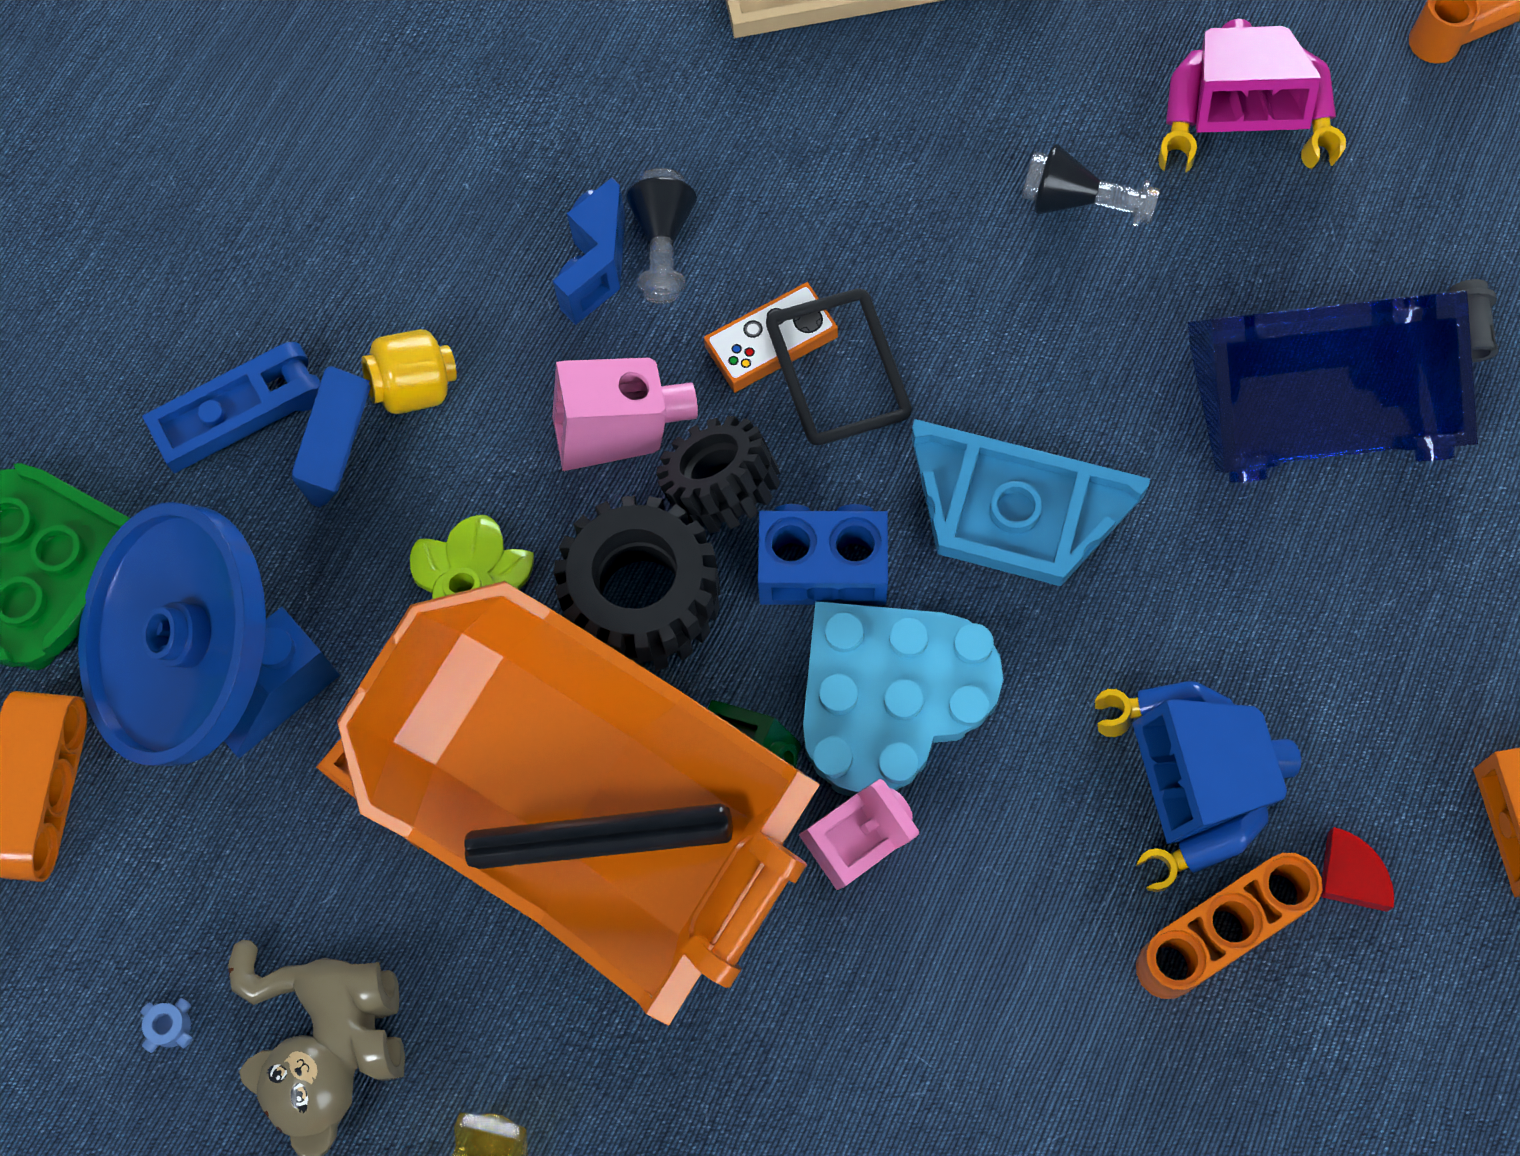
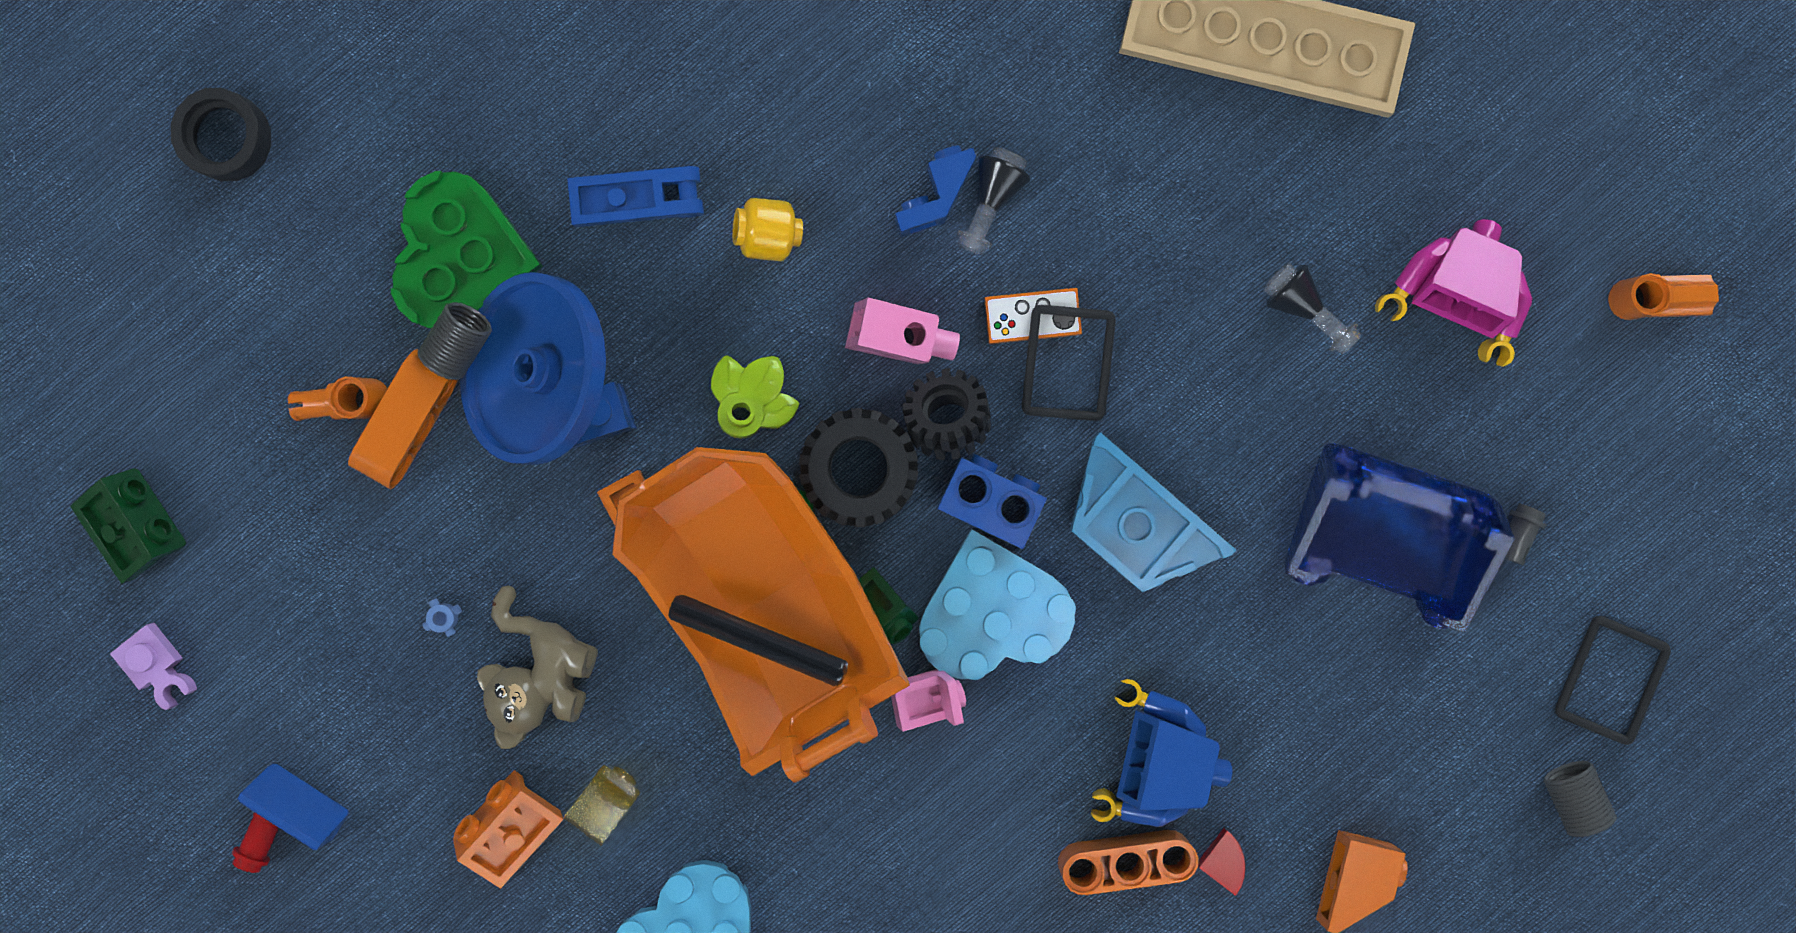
camera: 20 degrees right, 20 degrees up
(60, 650) = (454, 341): none -> dark grey piece
(329, 435) = (695, 259): blue slope -> none

